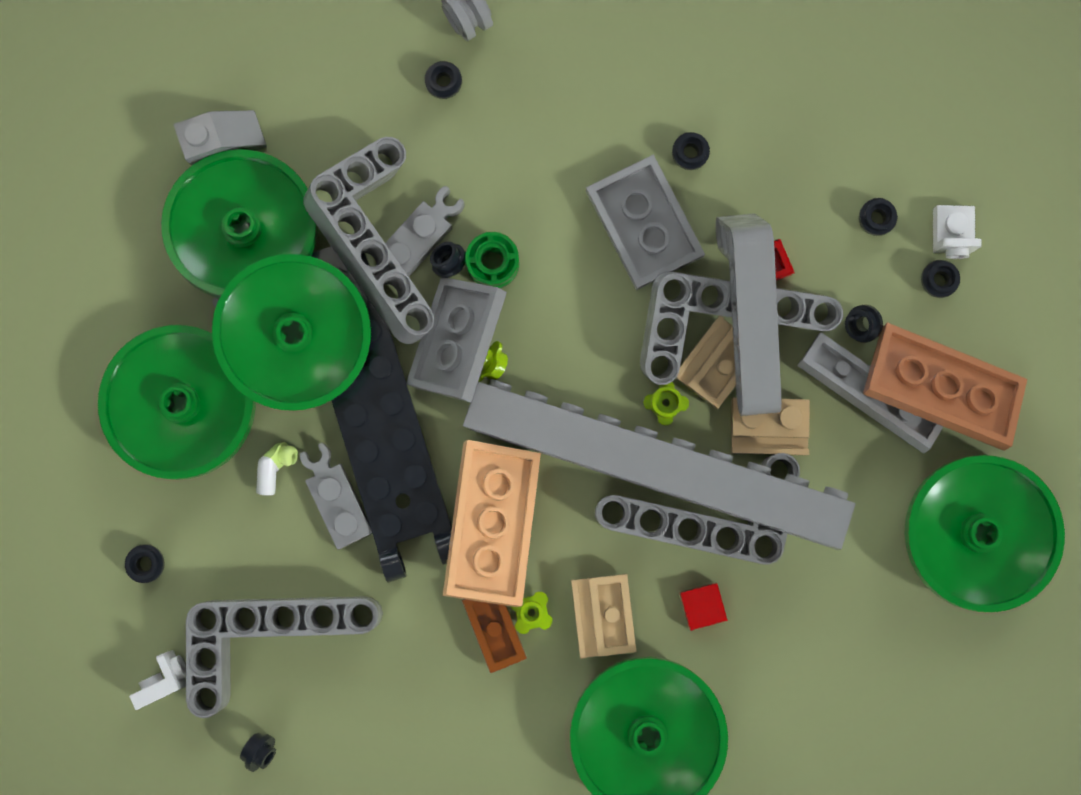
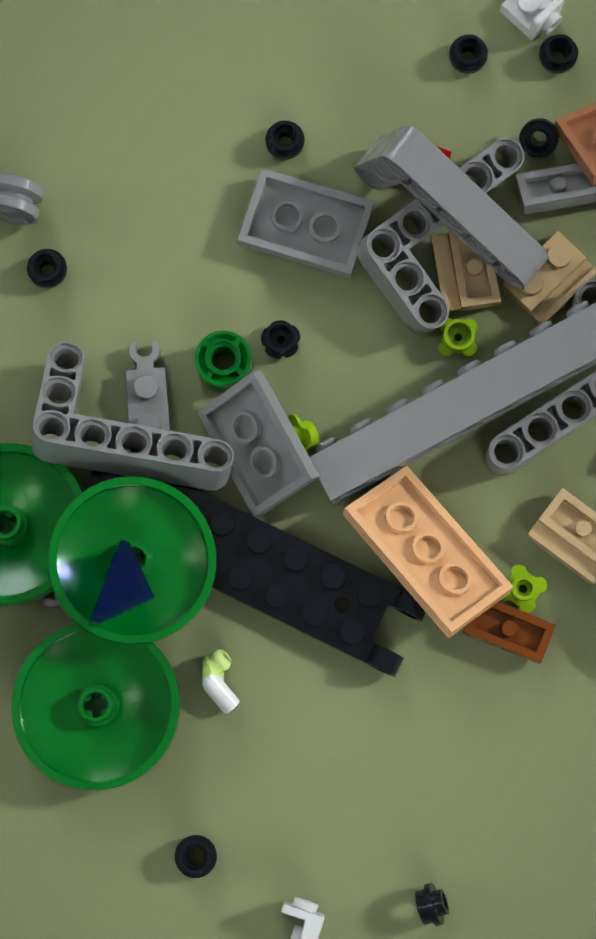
camera: 45 degrees left, 5 degrees down
(260, 345) = (123, 587): none -> clear blue slope
(266, 625) = (338, 804): light grey beam -> none
(336, 500) = (291, 657): light grey plate -> none
(447, 259) = (189, 394): black plate -> none
(544, 274) = (280, 329): none -> black plate

